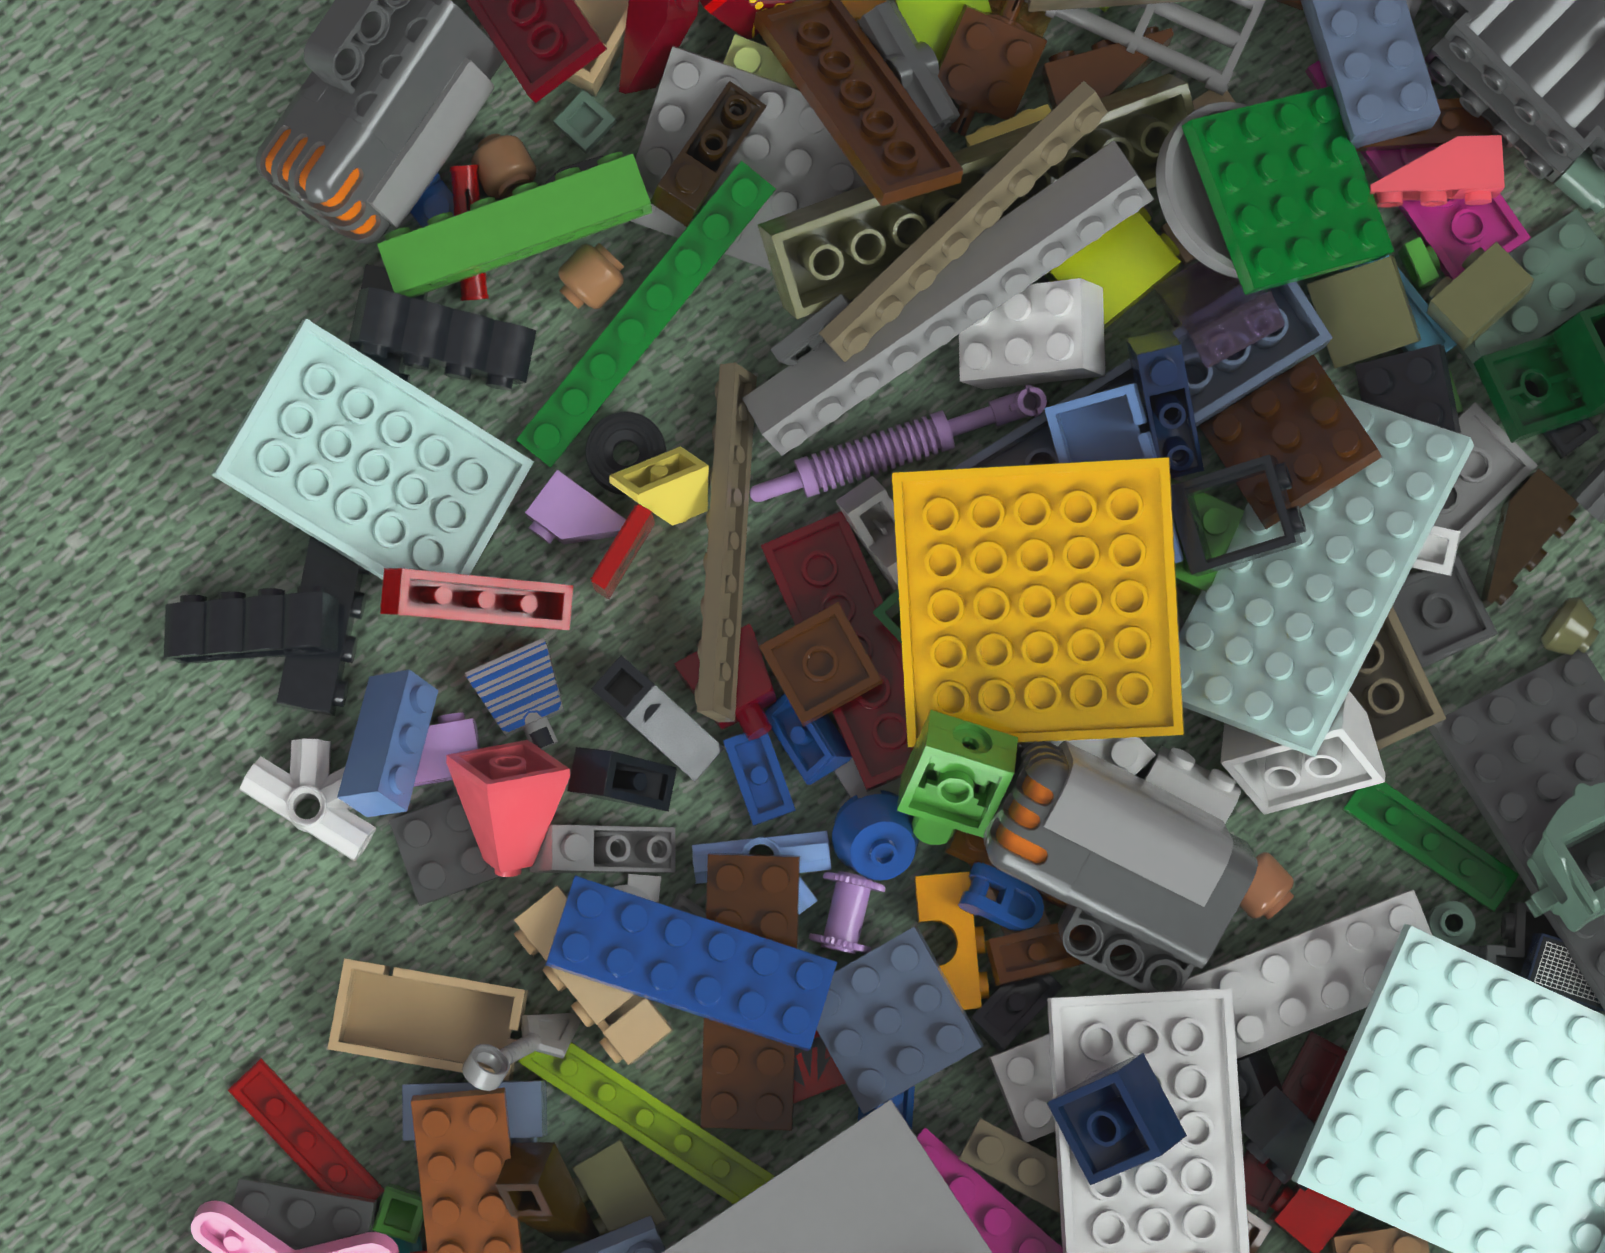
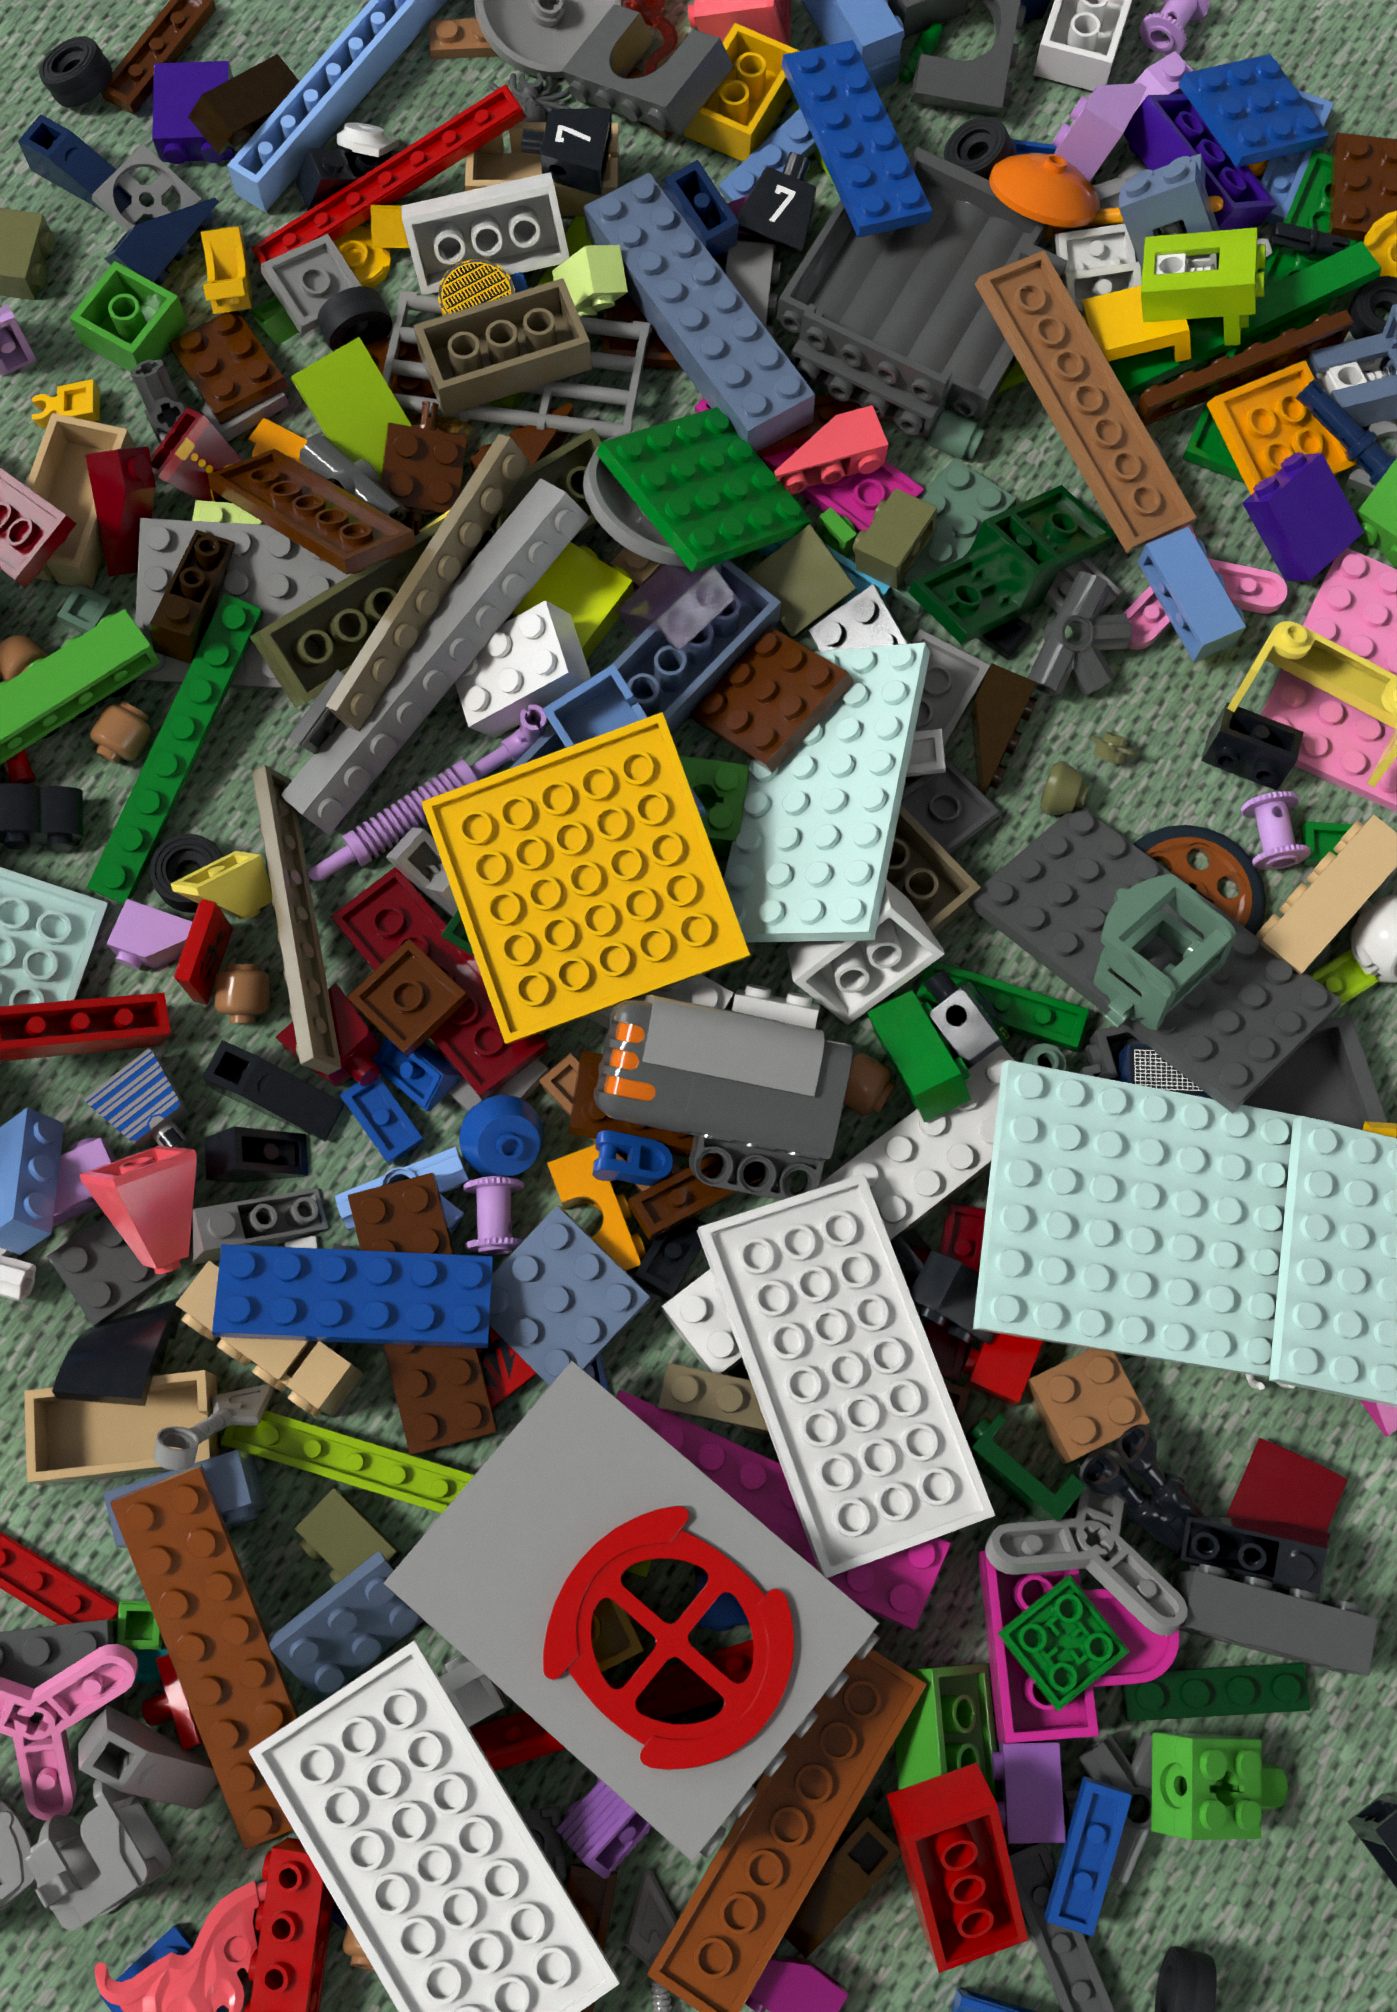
camera: 15 degrees left, 10 degrees down
(442, 948) = (118, 1357): none -> black slope
(543, 1193) = (267, 1559): dark brown slope -> none
(650, 601) = (242, 992): none -> medium nougat head
(953, 784) = (554, 1055): bright green brick -> none
(1117, 1119) = (792, 1319): dark blue slope -> none
(1166, 399) = (652, 683): dark blue slope -> none
(1191, 528) = (721, 732): black window -> none
(1328, 877) = (920, 1055): none -> green brick
(1387, 855) = (969, 1036): none -> torso

